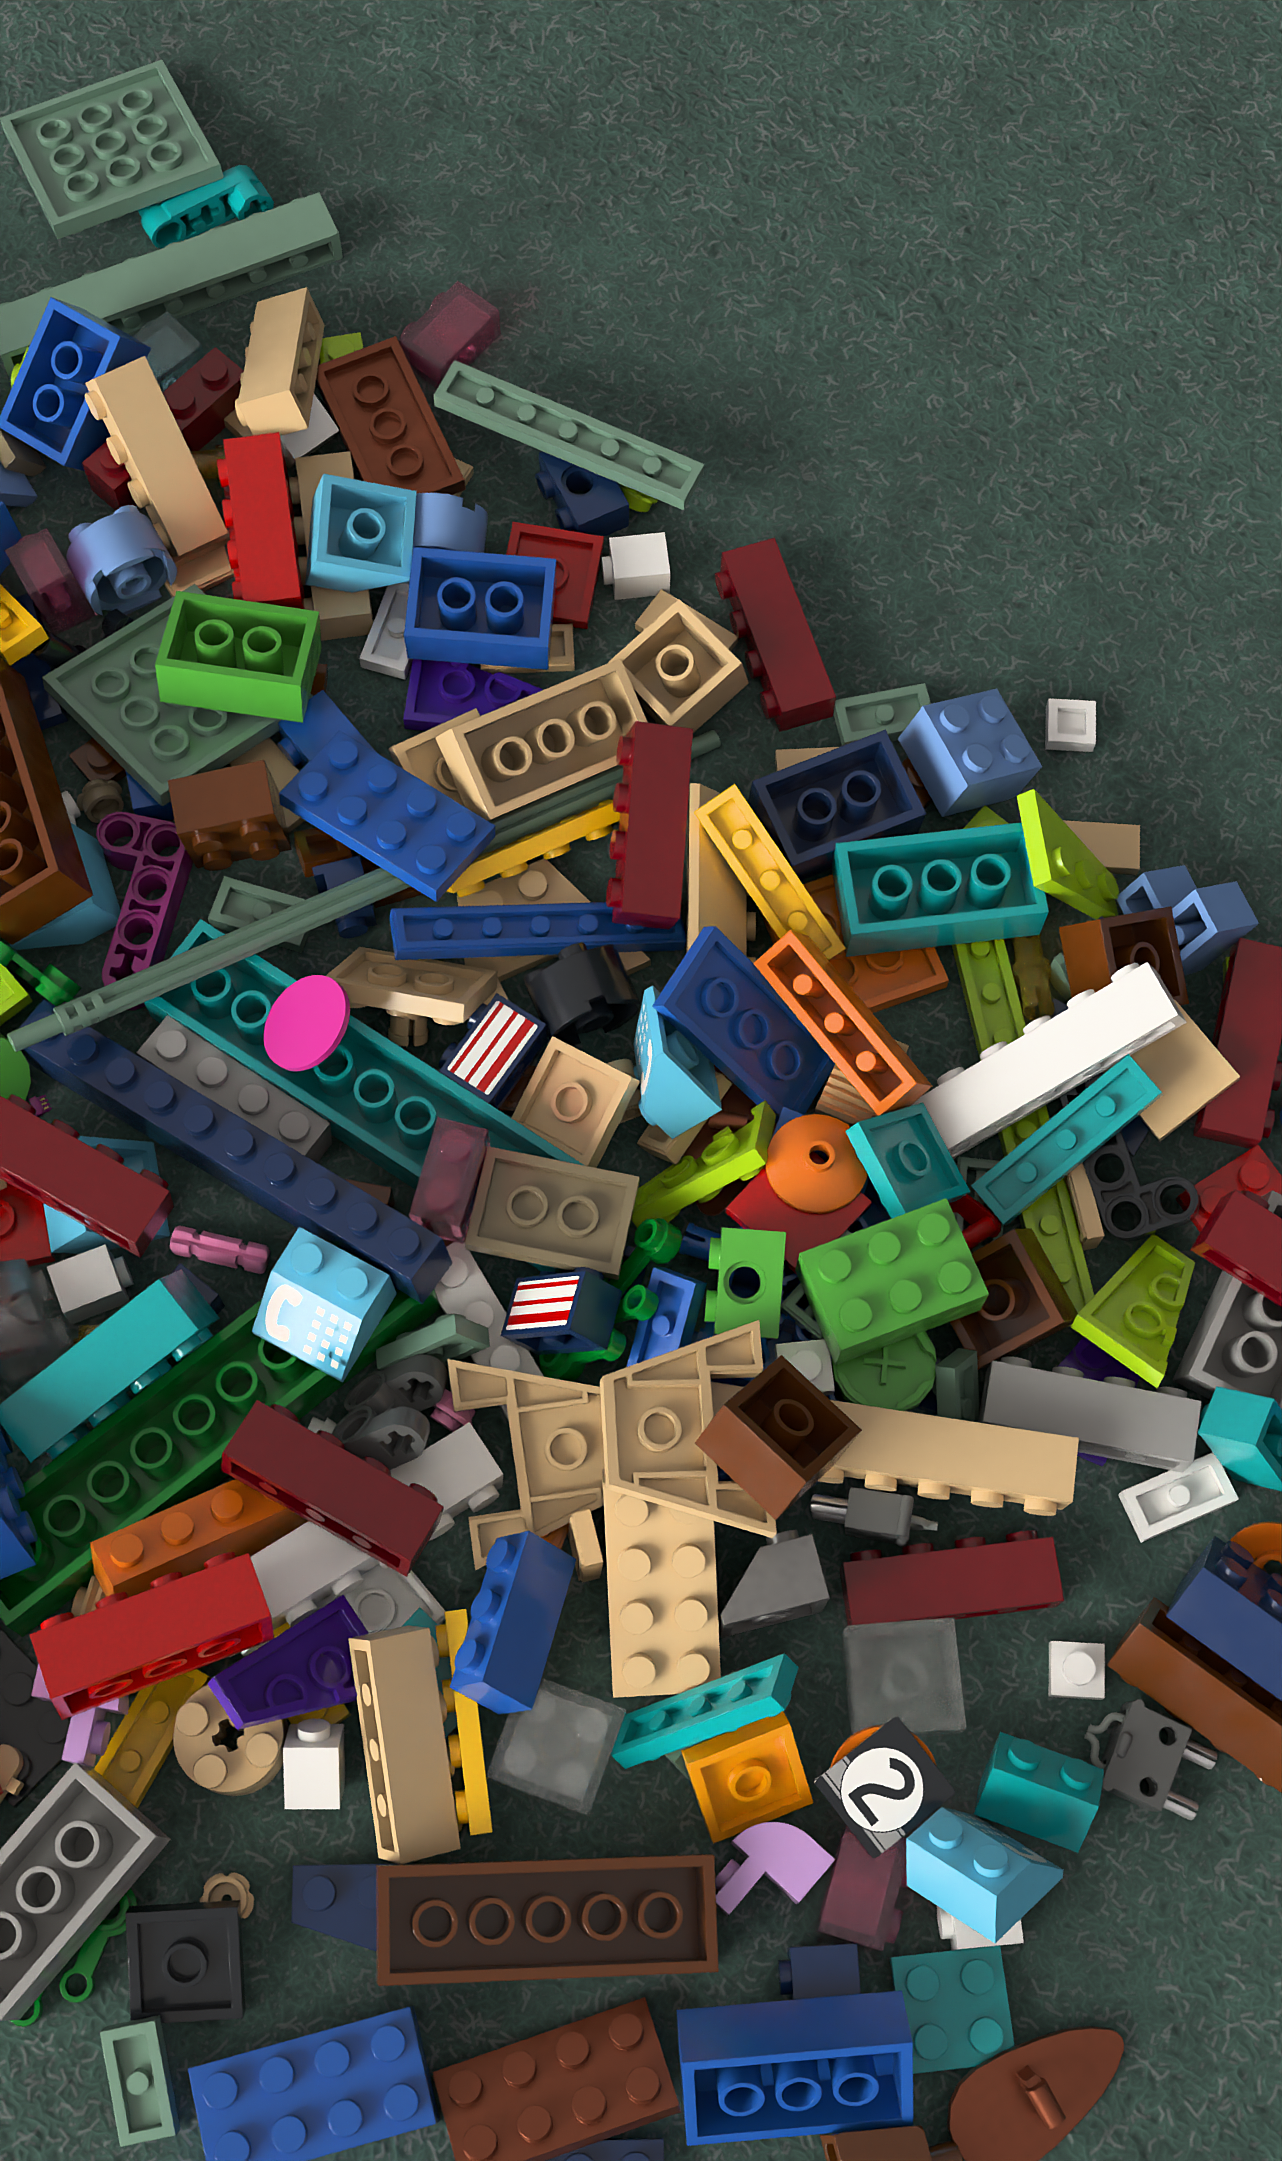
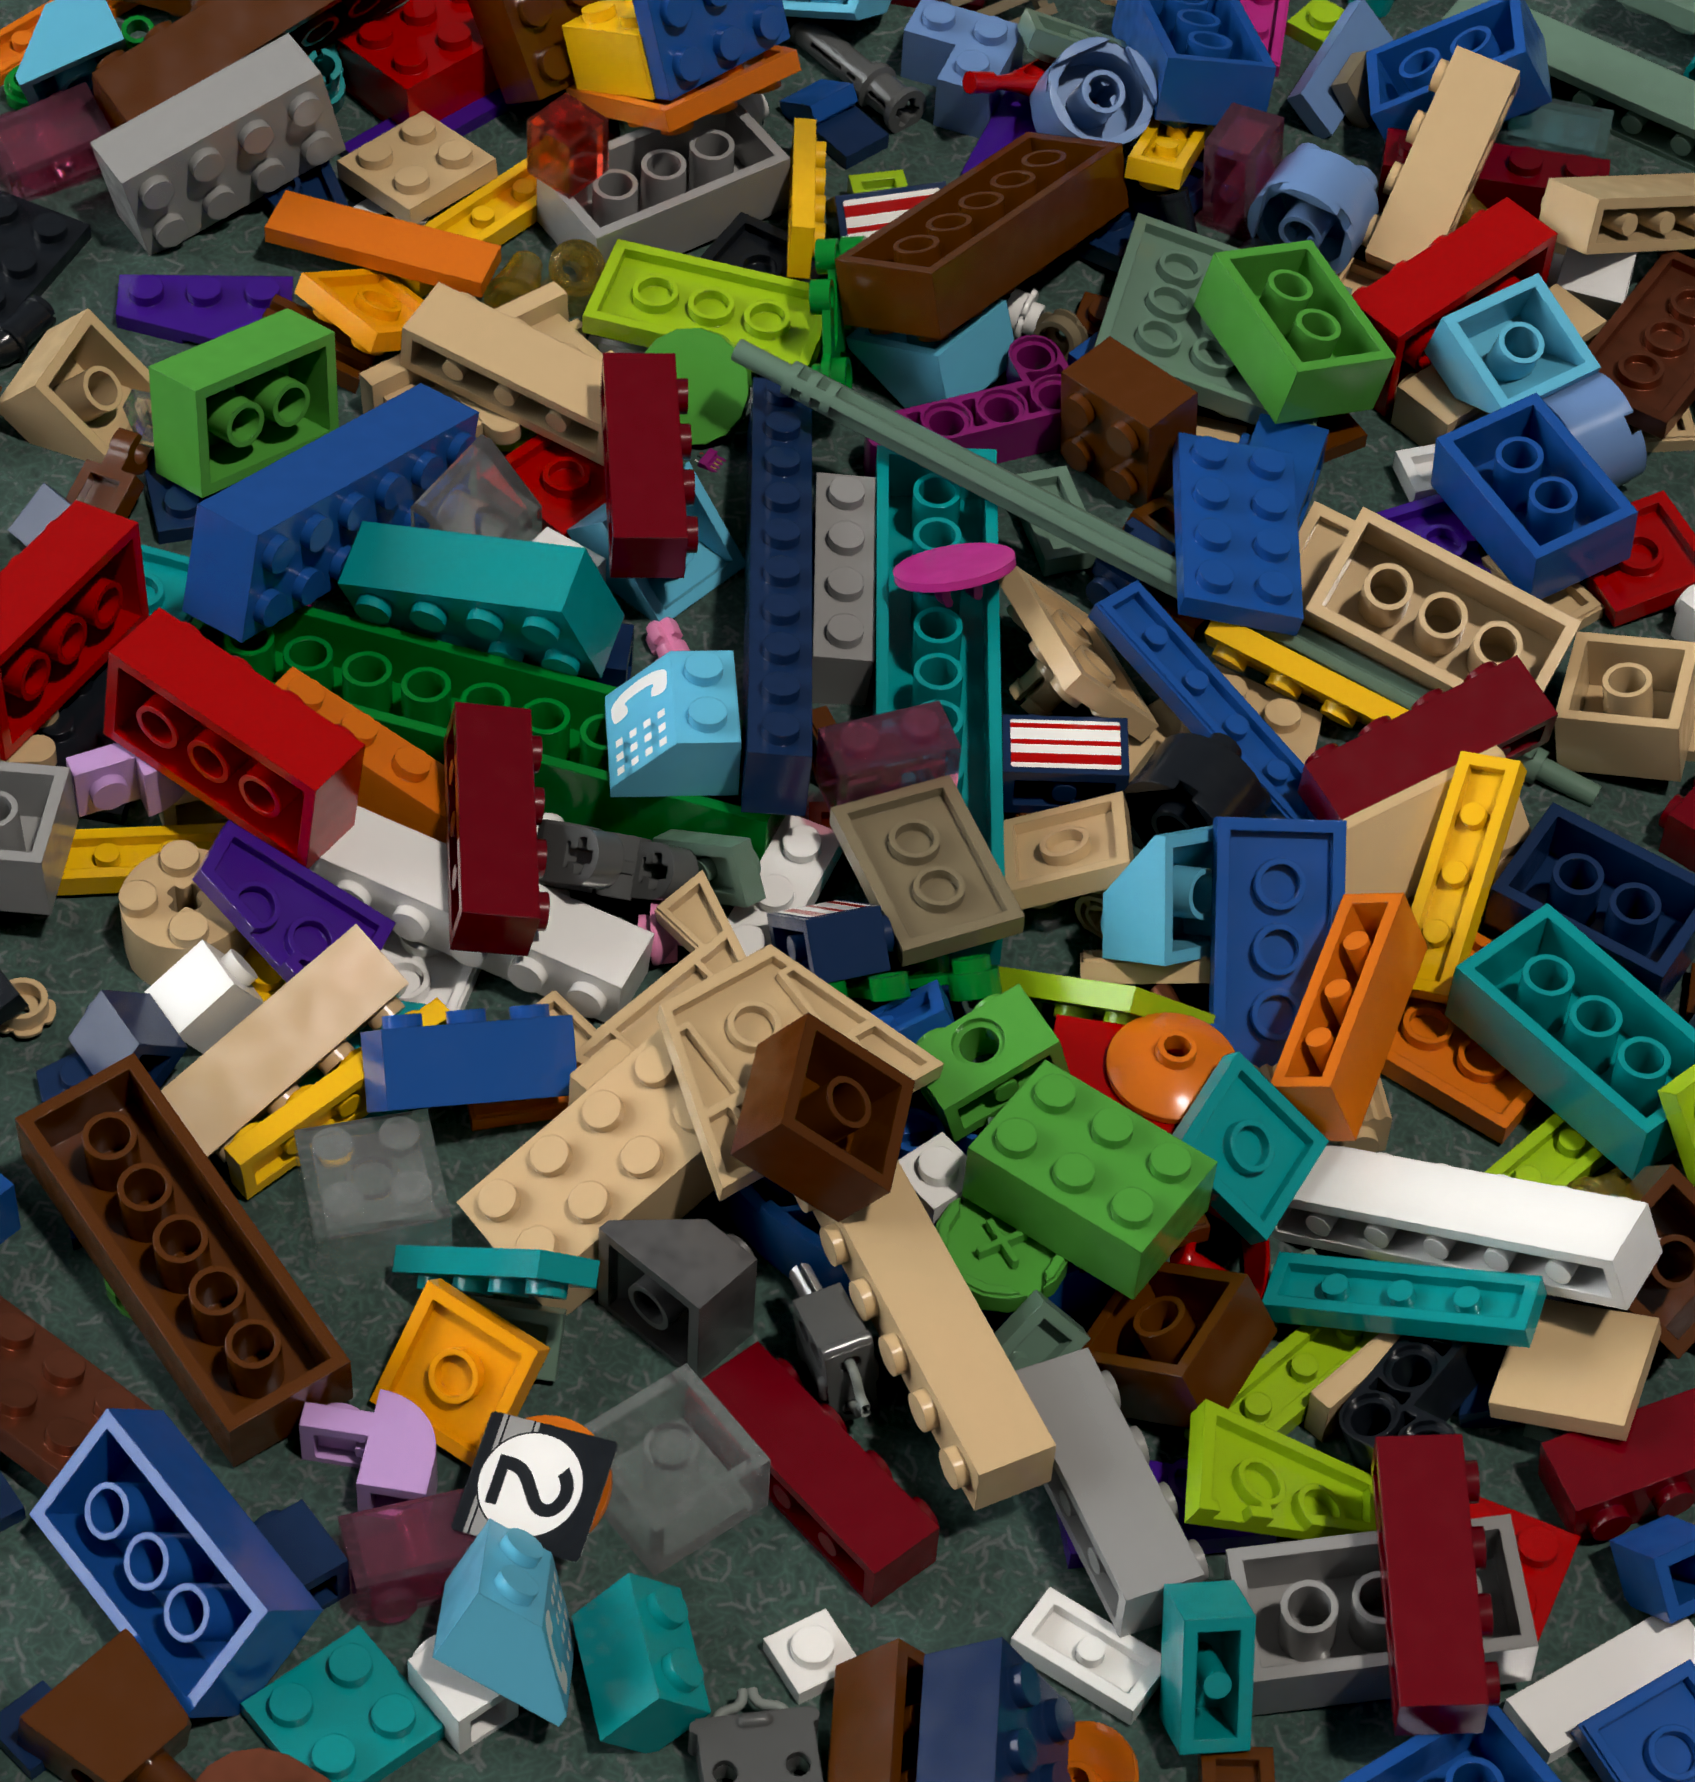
camera: 55 degrees right, 20 degrees down
(320, 1847) = (124, 1025): none -> dark blue brick

